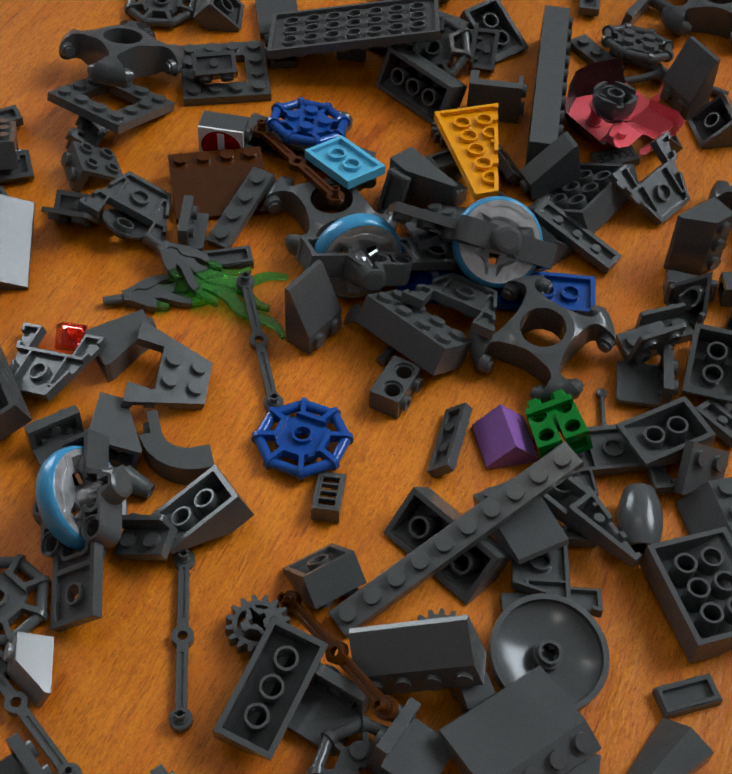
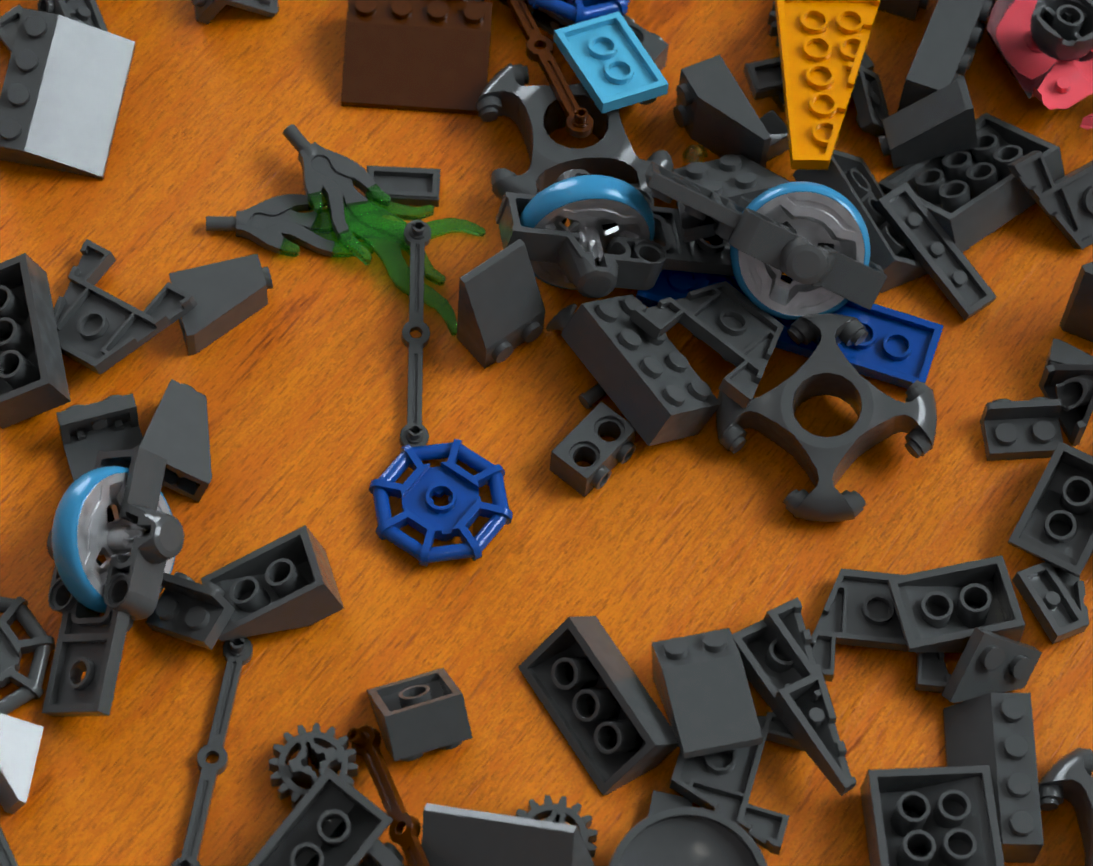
camera: 10 degrees right, 10 degrees up
(66, 210) = (196, 58): dark grey bracket -> none
(69, 335) = (147, 273): clear red slope -> none
(123, 225) = (262, 99): dark grey dish -> none
(135, 198) = (289, 60): dark grey wing -> none
(141, 485) = (195, 522): dark grey cone -> none
(170, 461) = (252, 505): dark grey arch -> none
(180, 377) = (290, 371): dark grey wing -> none
(192, 225) = (360, 122): dark grey bracket -> none
(240, 209) = (439, 105): dark grey plate -> none
(328, 512) = (444, 621): dark grey slope -> none
(394, 189) = (675, 124): dark grey tile -> none
(449, 440) = (647, 548): dark grey plate -> none
(456, 539) = (608, 705): dark grey plate -> none
(504, 439) = (728, 562): medium lavender slope -> none
(557, 416) = (806, 546): green hips -> none
(601, 395) = (892, 519): dark grey hinge -> none
(621, 155) = (1043, 122): dark grey tile -> none
(640, 516) = (877, 724): dark grey piece -> none
(647, 383) = (962, 515): dark grey bracket -> none
(648, 341) = (981, 452): dark grey bracket -> none

